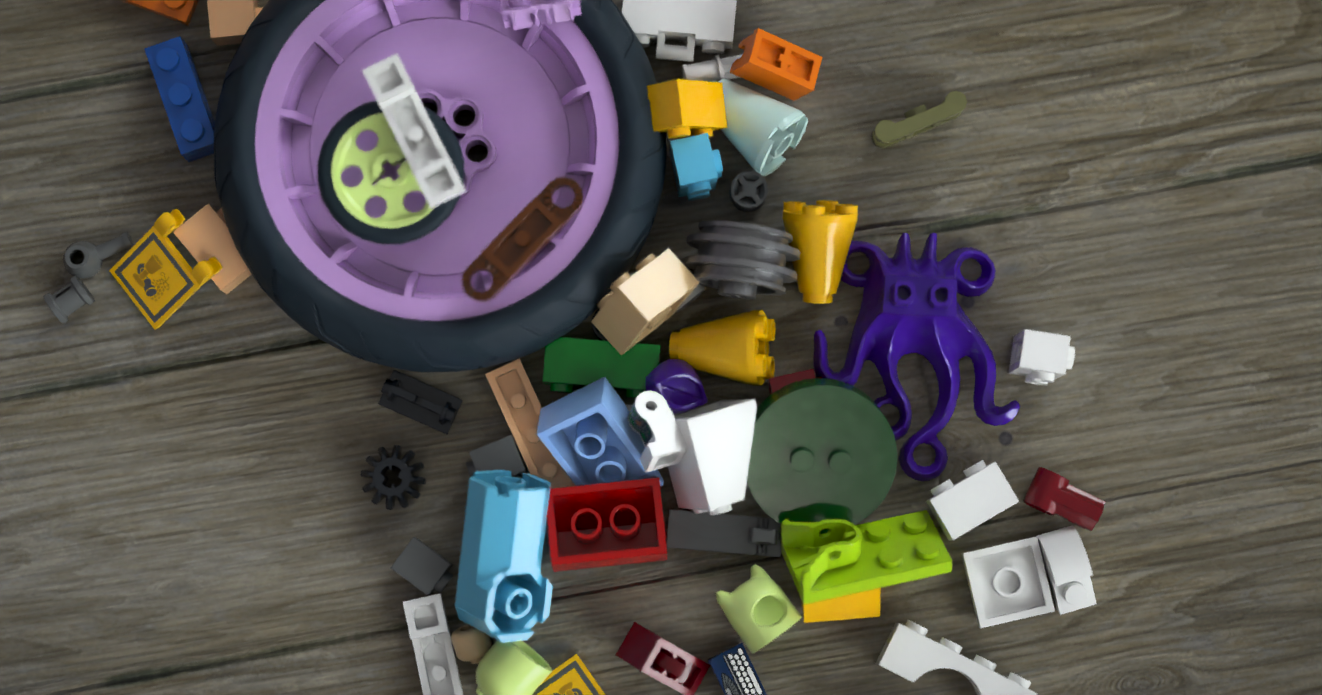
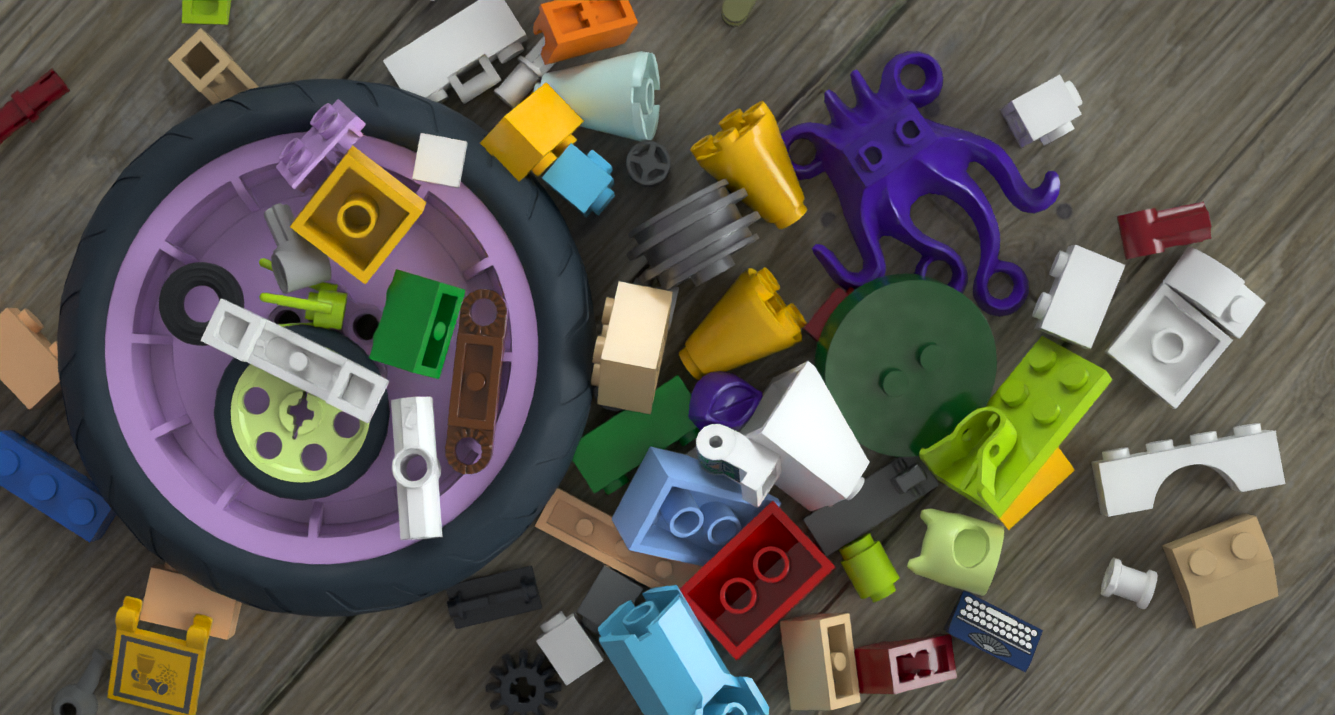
camera: 30 degrees left, 5 degrees up
(376, 26) = (180, 283): none -> black tyre
(424, 286) = (414, 437): none -> white piece
(445, 473) = (569, 646): none -> white brick
(459, 113) = (325, 307): none -> lime plant
(468, 67) = (295, 260): none -> light grey axle
(513, 170) = (417, 324): none -> green brick
(530, 67) = (358, 214): none -> yellow brick
(607, 613) = (816, 659): none -> tan brick
(611, 75) = (439, 160): none -> white tile
(689, 576) = (869, 568): none -> lime brick

